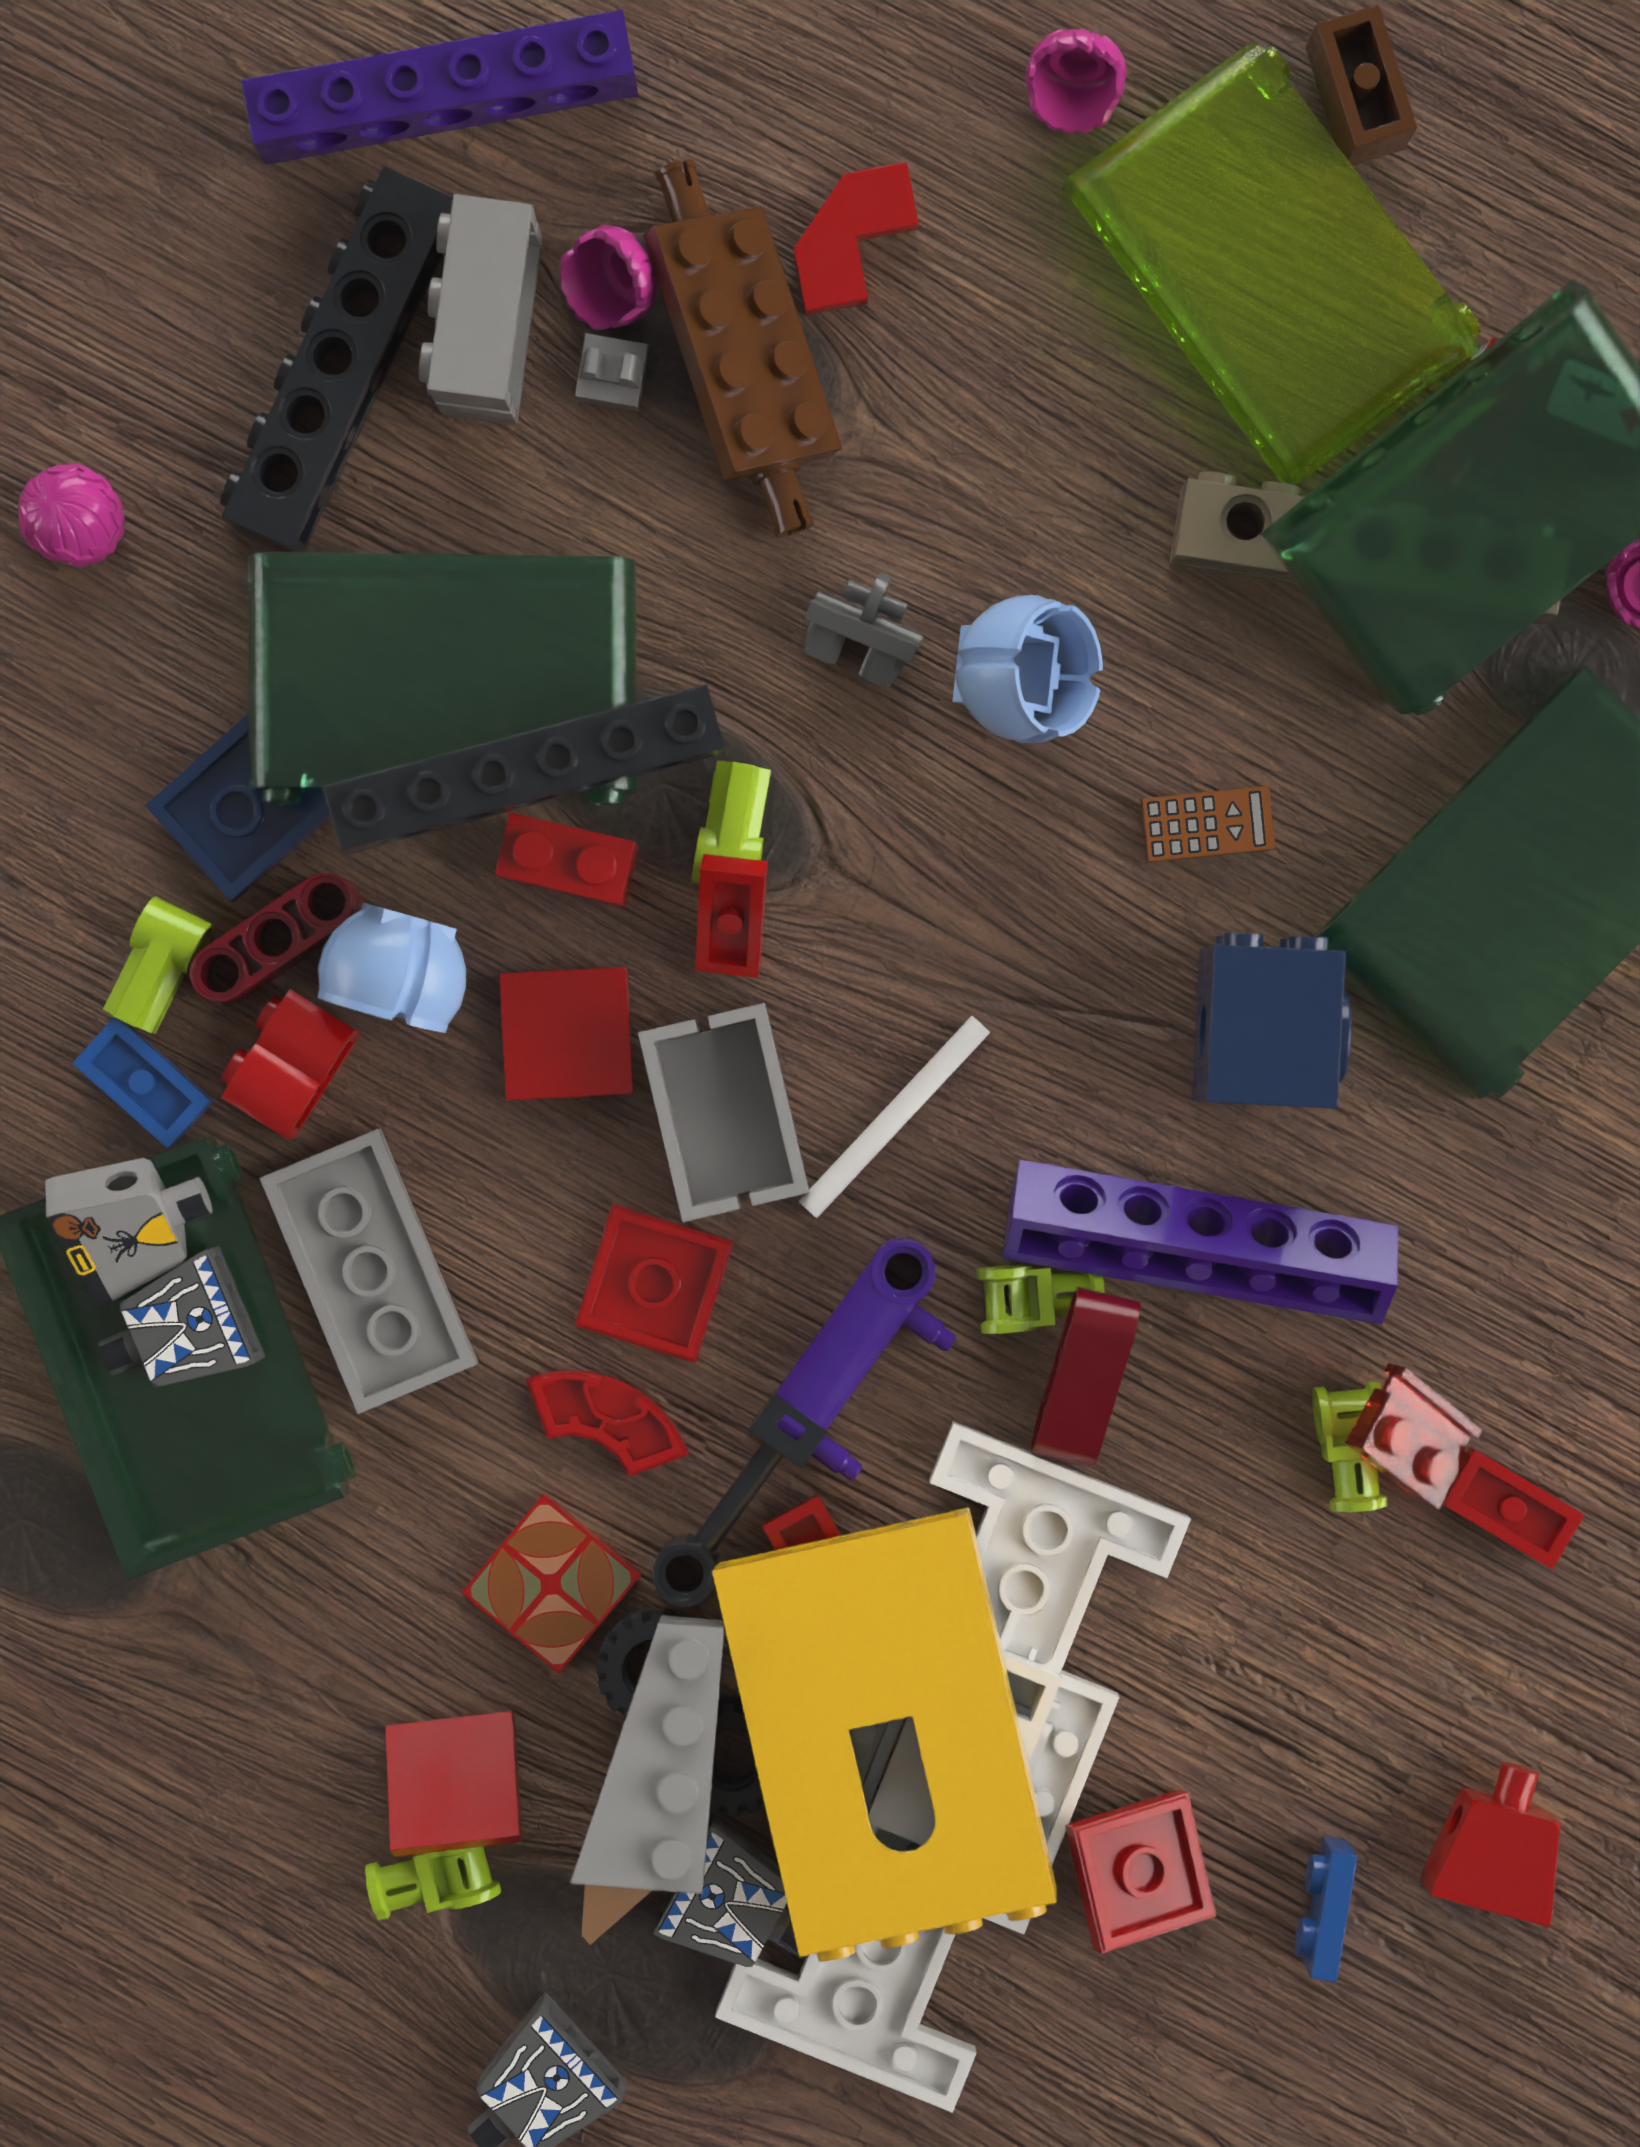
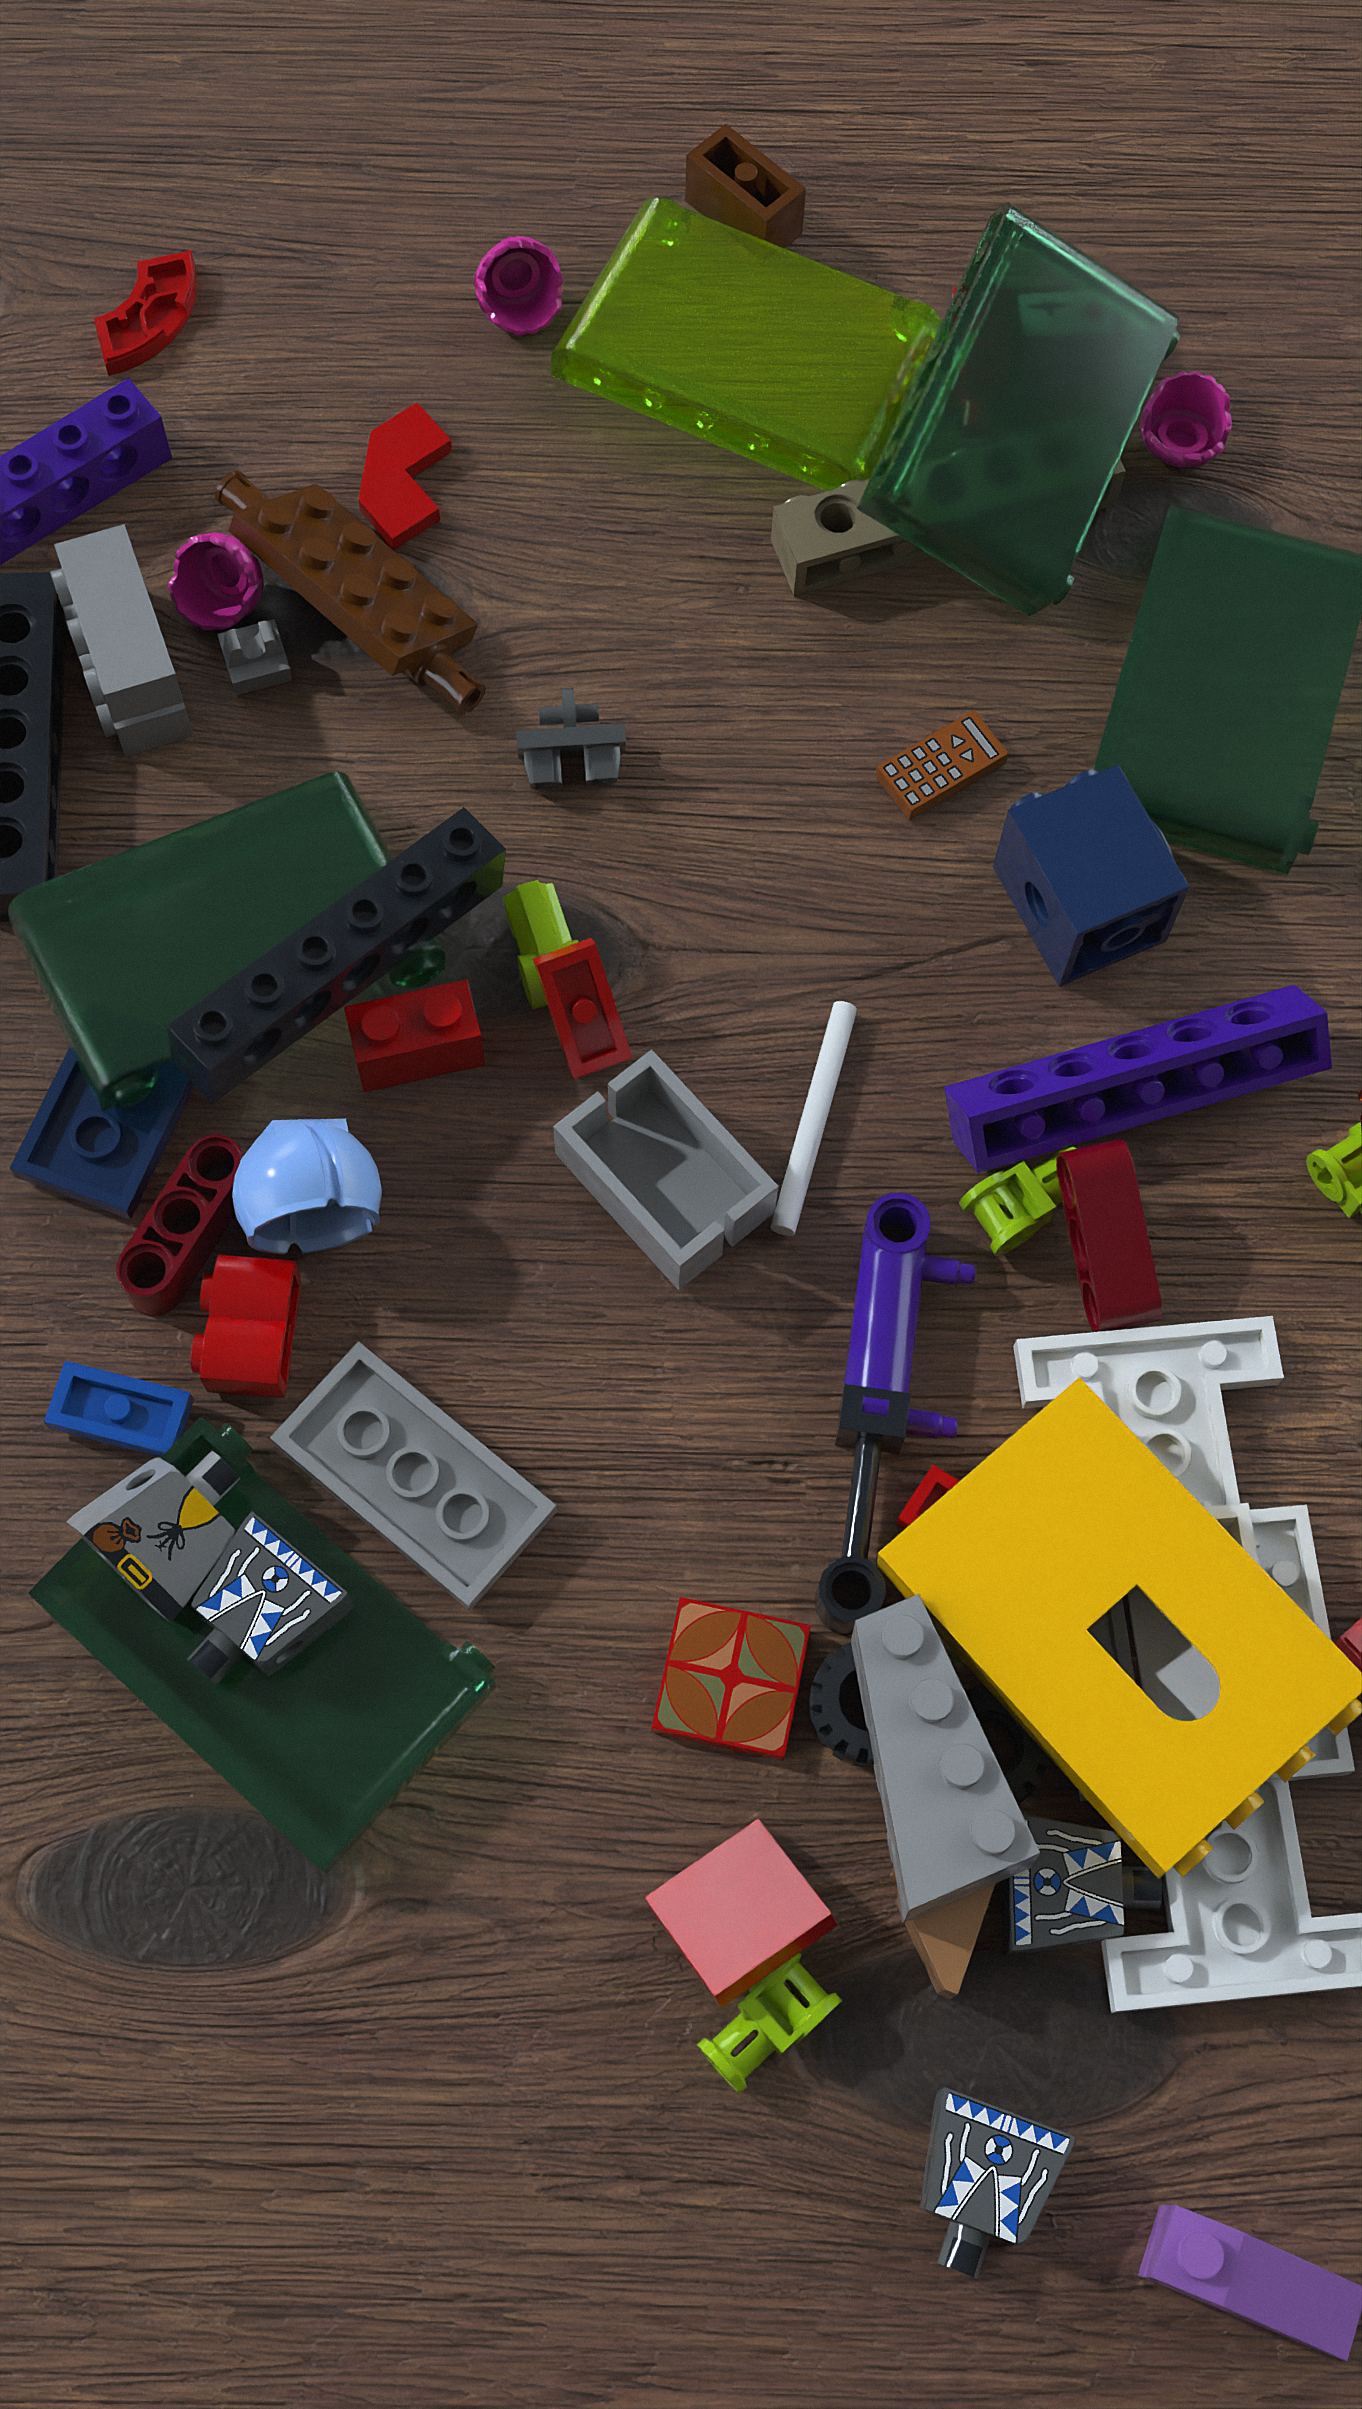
camera: 30 degrees left, 20 degrees down
(160, 957) = (83, 1292): lime piece -> none
(566, 1033) = (488, 1186): red tile -> none
(608, 1413) = (700, 1497): red tile -> none
(654, 1283) = (680, 1361): red tile -> none
(1028, 669) = (724, 698): light blue piece -> none

